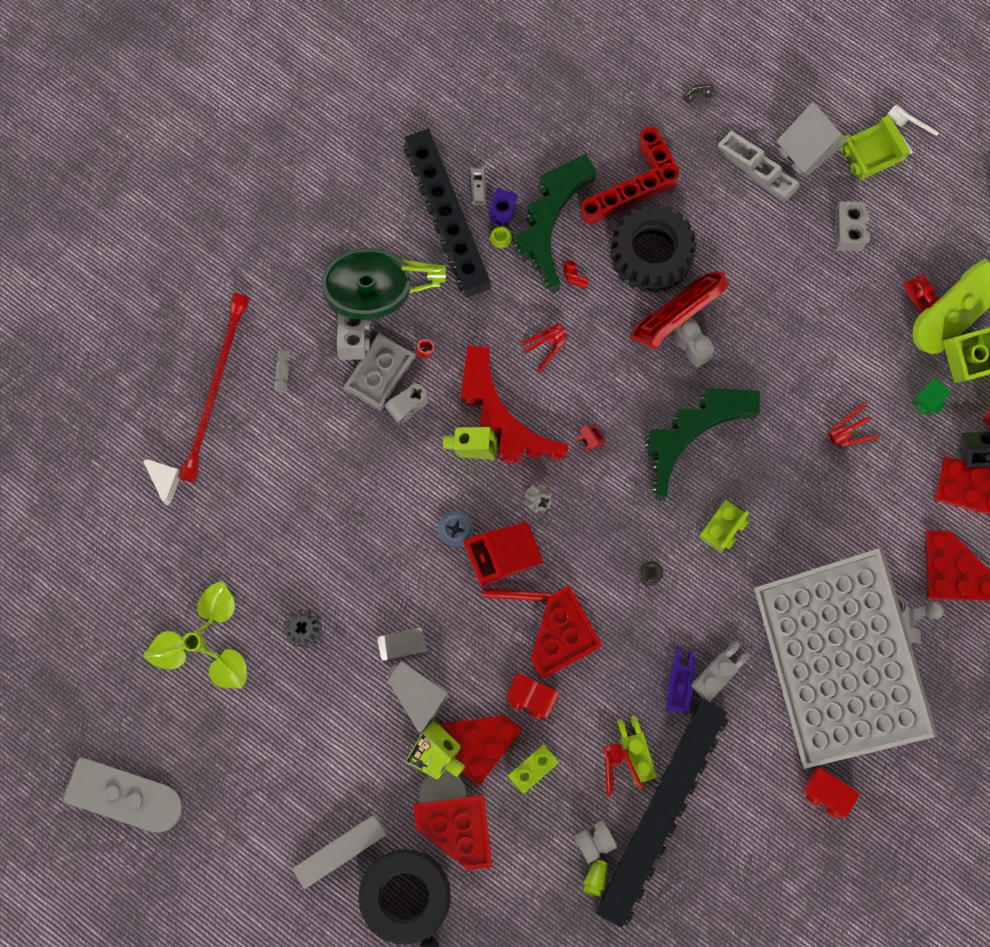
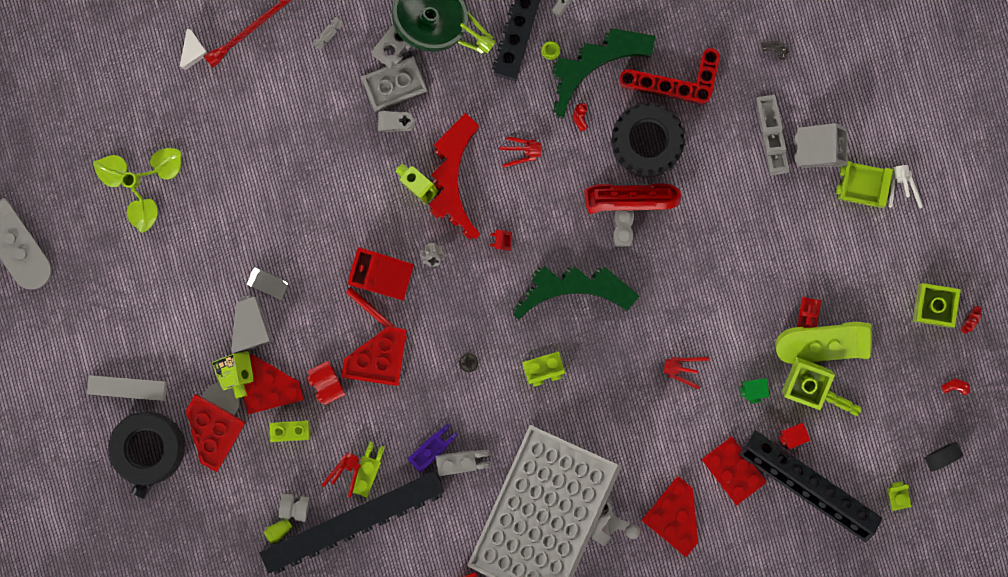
camera: 40 degrees right, 10 degrees up
(296, 622) = (205, 219): dark grey gear -> none
(421, 346) = (436, 87): red hinge -> none
(450, 519) = (371, 234): sand blue gear -> none
(506, 199) = (570, 22): dark purple brick -> none
(845, 225) = (798, 225): light grey brick -> none

